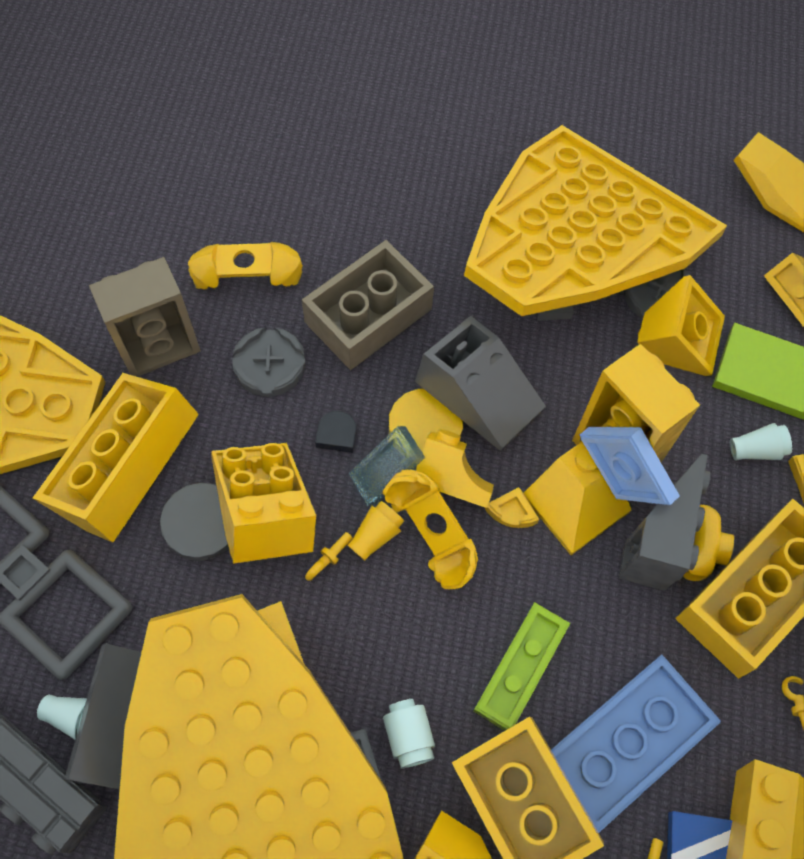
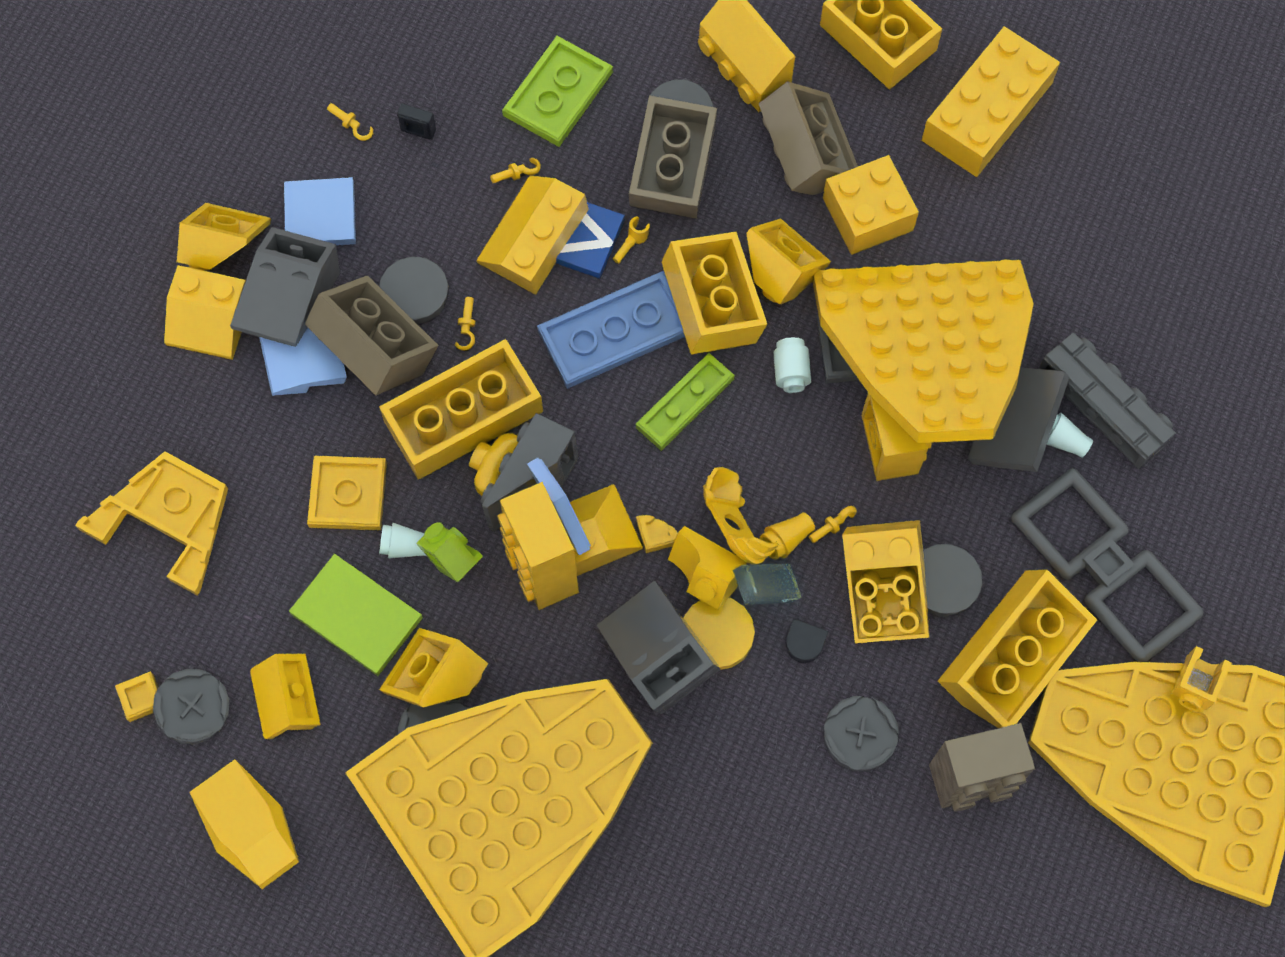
camera: 165 degrees left, 5 degrees up
(270, 259) = (841, 839): yellow piece -> none
(368, 304) = (751, 760): dark tan brick -> none
(716, 434) = (448, 551): none -> lime brick

